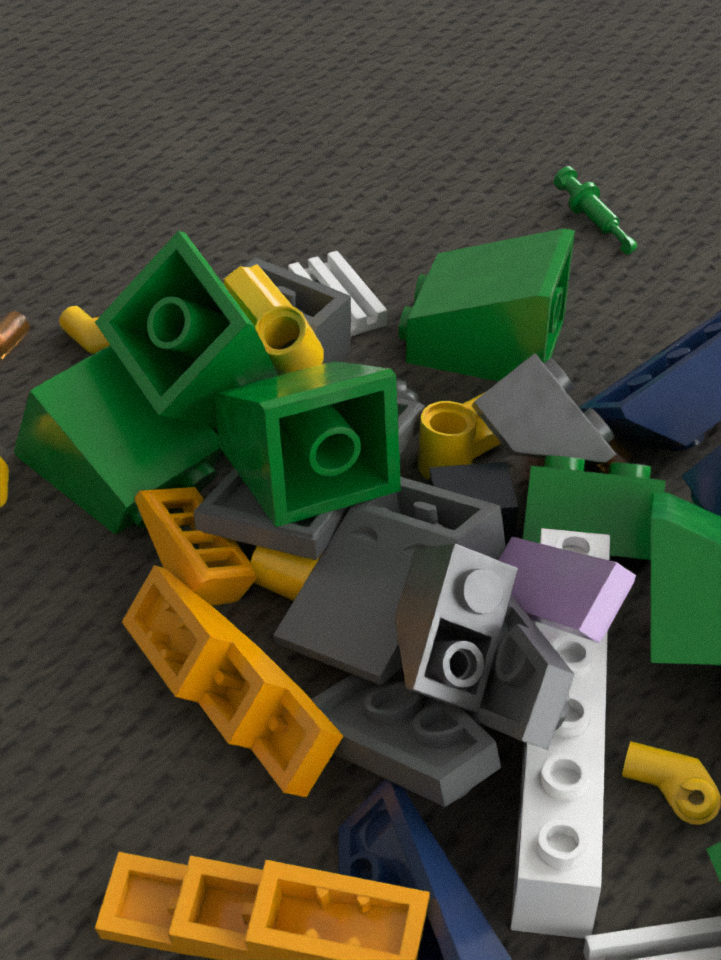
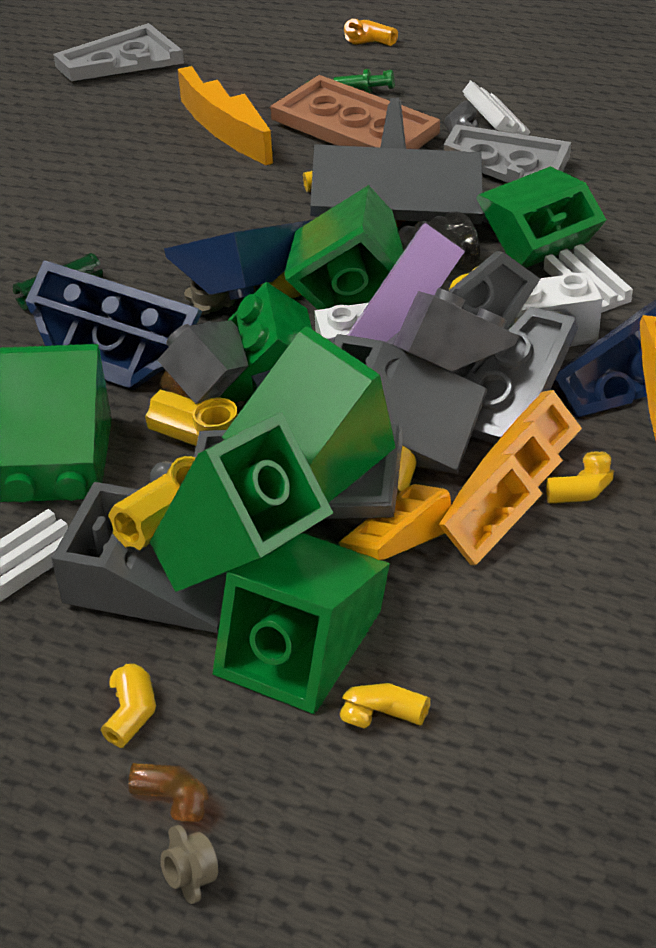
camera: 105 degrees left, 0 degrees up
(191, 776) = (586, 484): none -> yellow arm

